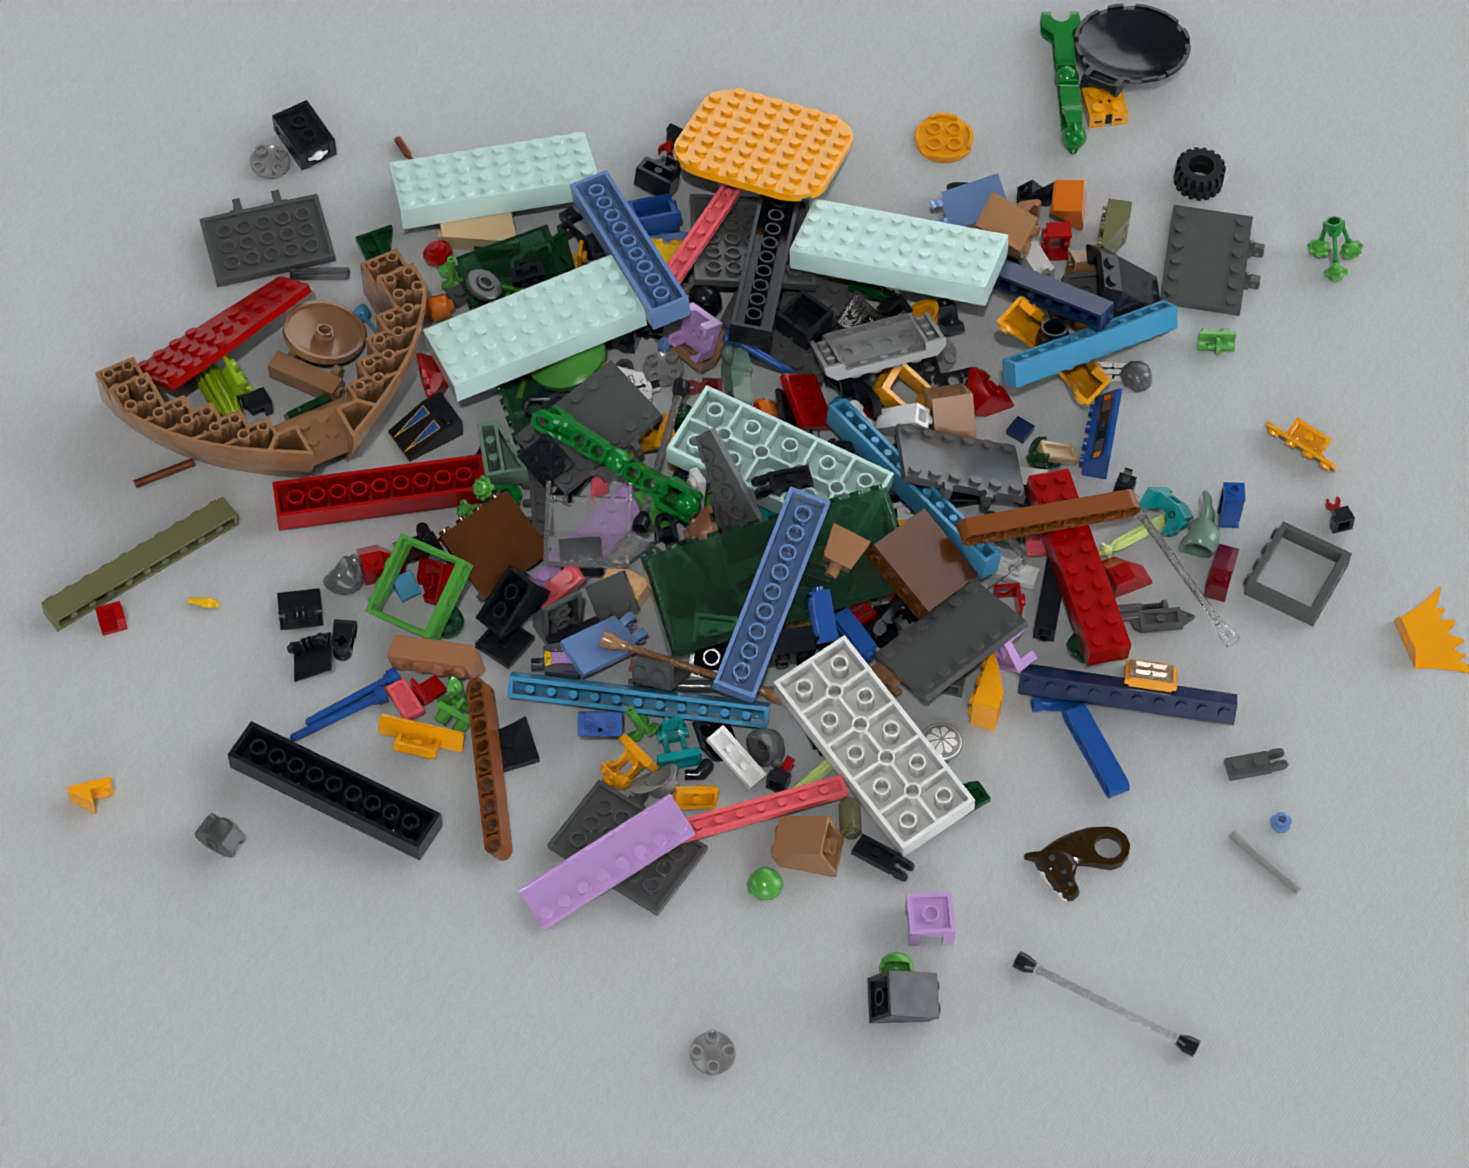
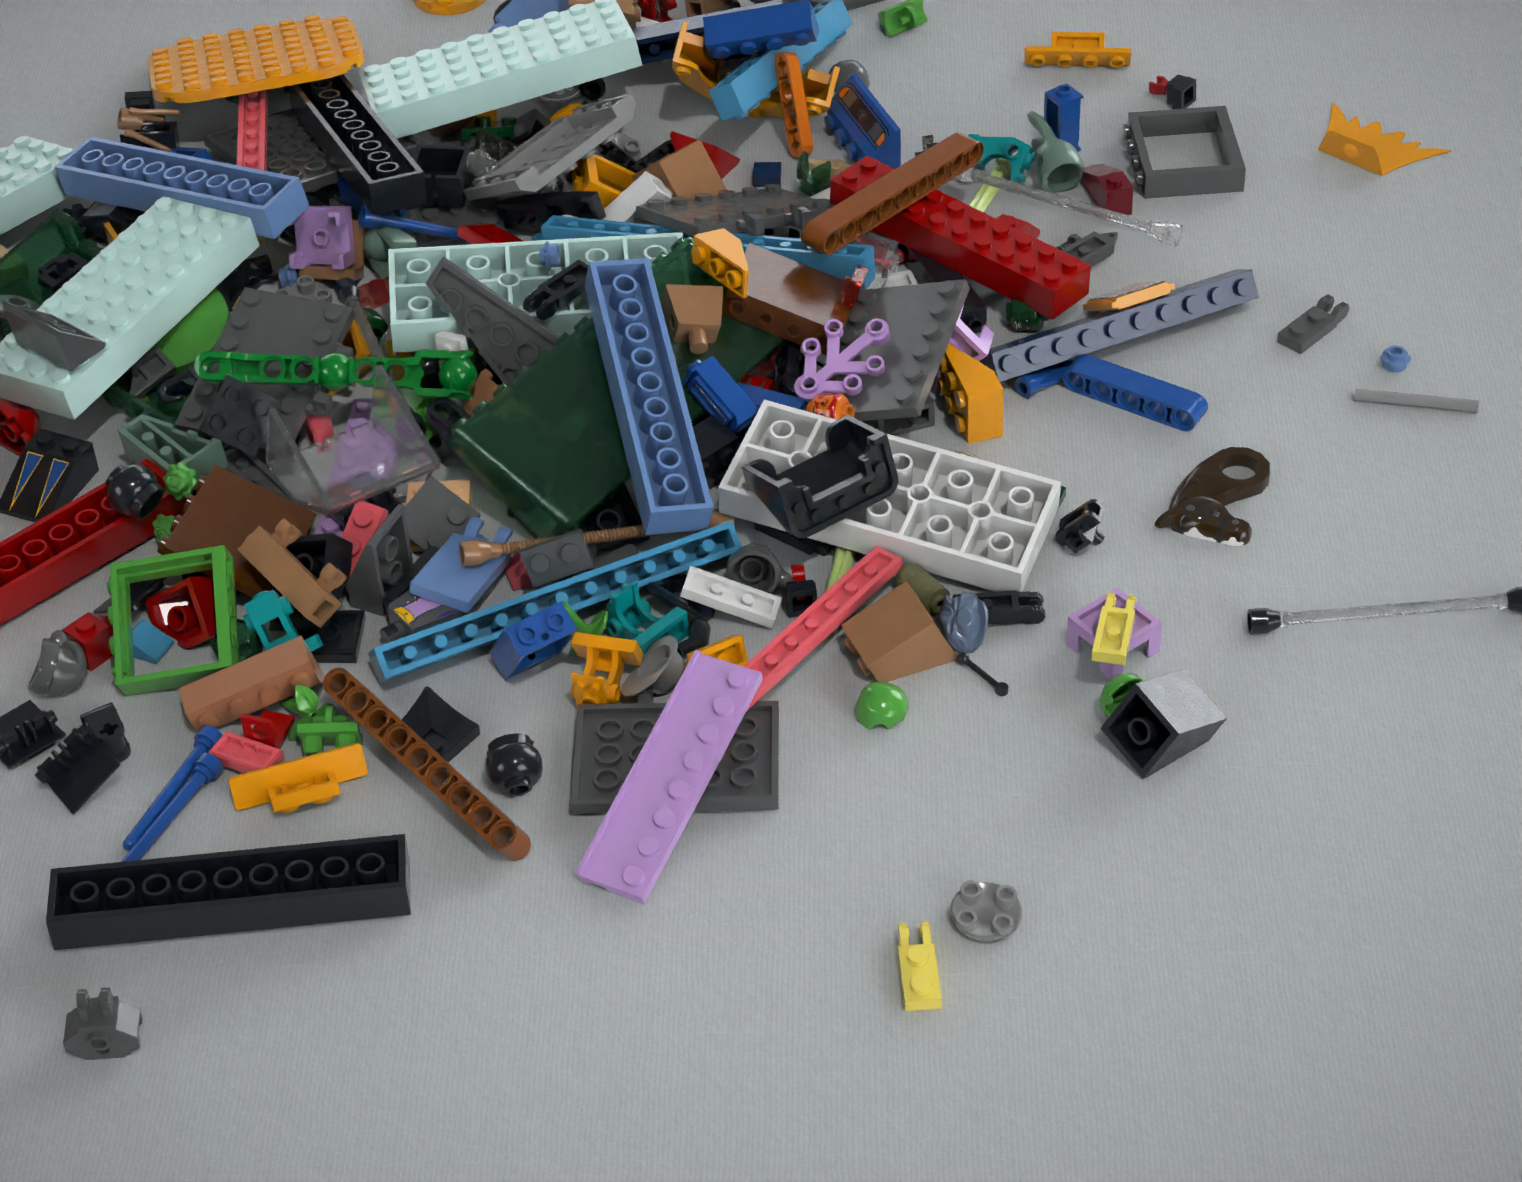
camera: 30 degrees left, 15 degrees down
(452, 481) = (133, 490): none -> black piece
(472, 615) = (268, 606): none -> teal tile
(473, 341) = (52, 336): none -> dark grey slope
(497, 595) = (289, 576): none -> medium nougat brick
(529, 383) = (150, 372): none -> dark grey tile
(534, 799) = (513, 764): none -> black piece
(647, 162) = (133, 118): none -> medium nougat plant
(650, 1065) = (919, 970): none -> light yellow hinge
(795, 449) = (550, 255): none -> medium blue plate
(830, 720) = (831, 485): none -> black windscreen
(833, 325) = (480, 162): none -> clear plate
(842, 912) = (1001, 688): none -> black hinge
(853, 855) = (964, 621): none -> sand blue hat
(882, 664) = (831, 405): none -> orange head
(885, 517) = (722, 258): none -> light orange slope
(911, 632) = (842, 362): none -> lavender plant
(919, 922) = (1114, 631): none -> light yellow hinge
(964, 578) = (852, 286): none -> clear red plate
(975, 832) = (1080, 526): none -> black piece
(1066, 389) = (793, 105): none -> orange beam
(1075, 326) = (760, 29): none -> blue slope

